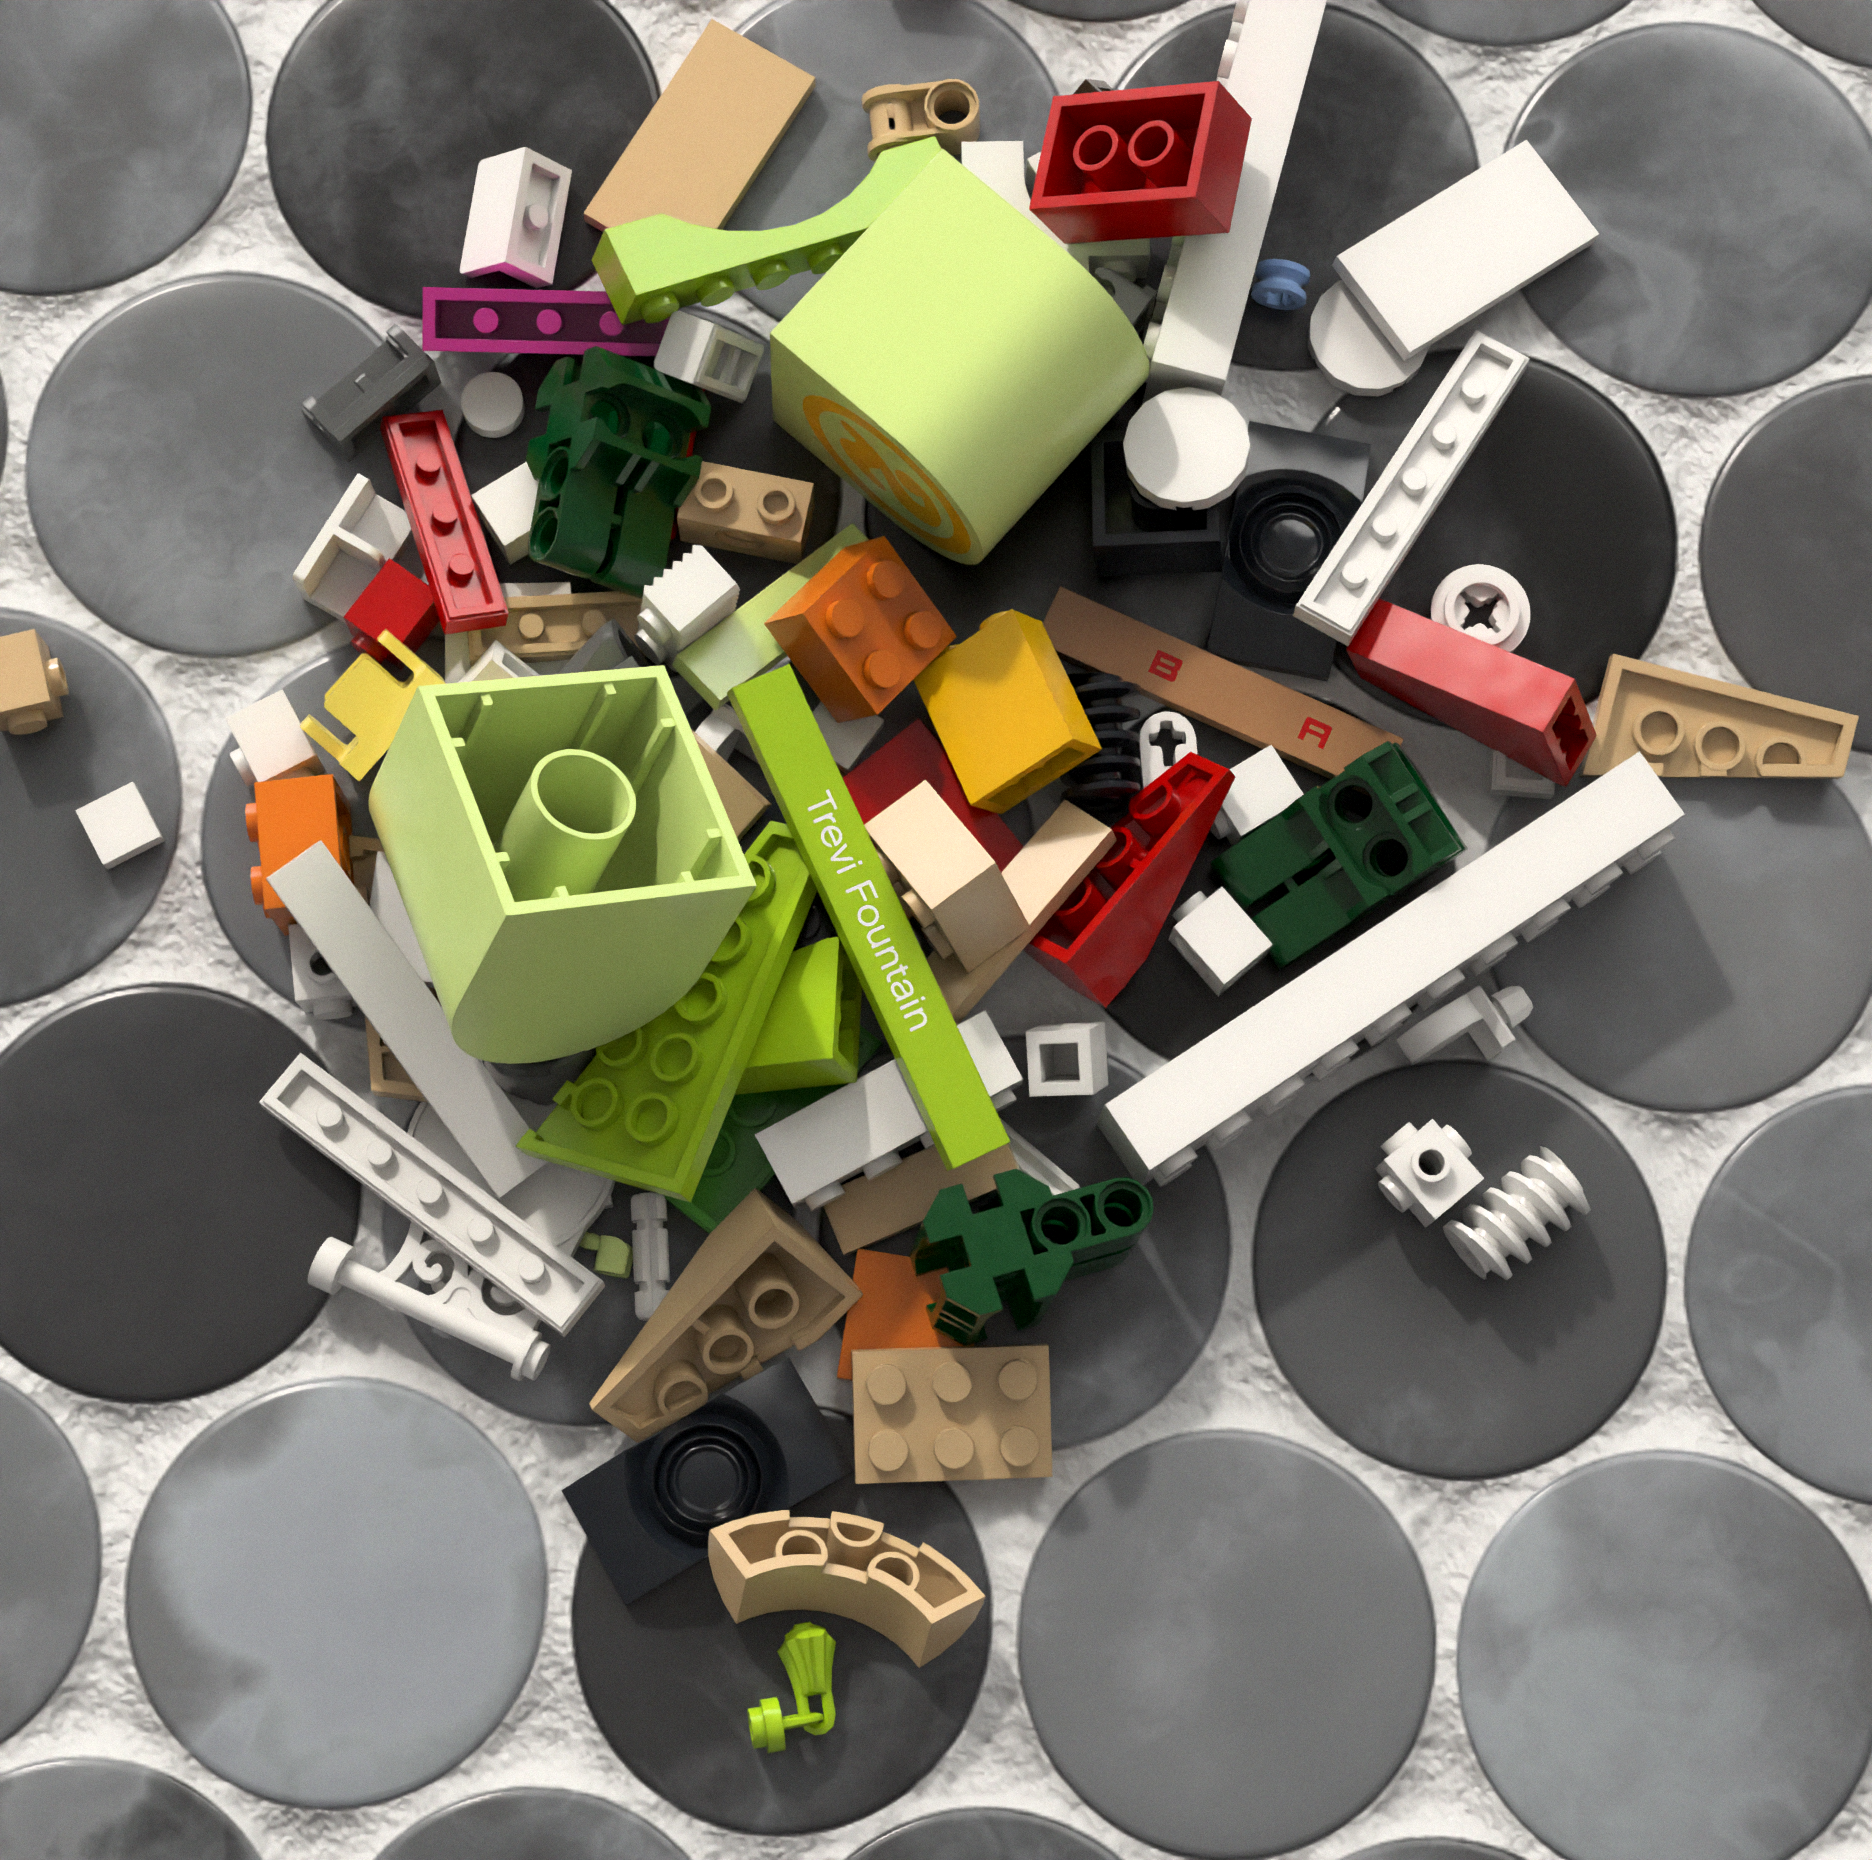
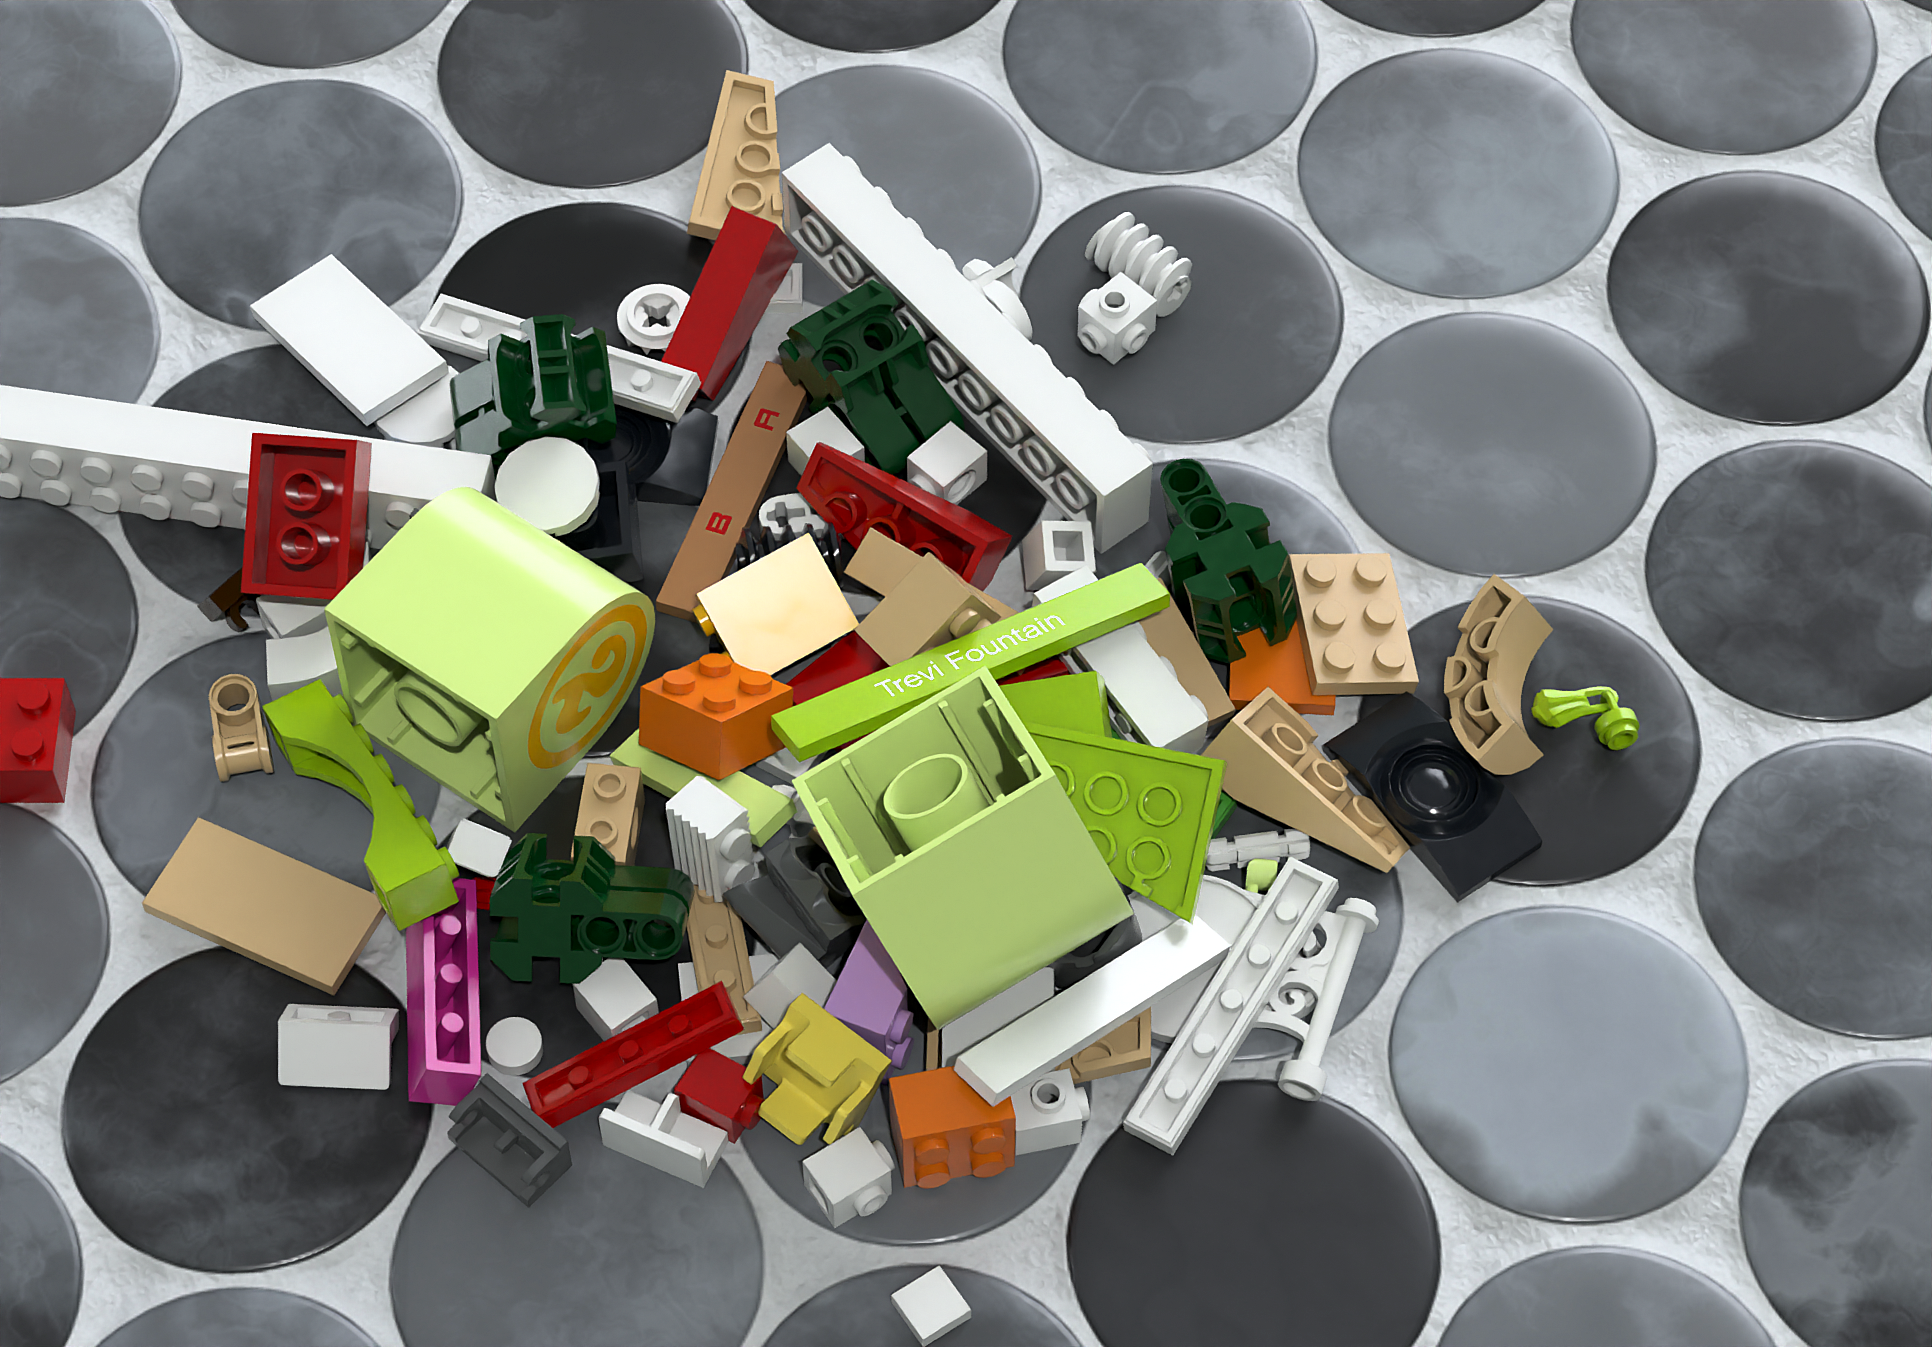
camera: 90 degrees left, 20 degrees down
(1319, 445) = (535, 390): none -> dark green connector

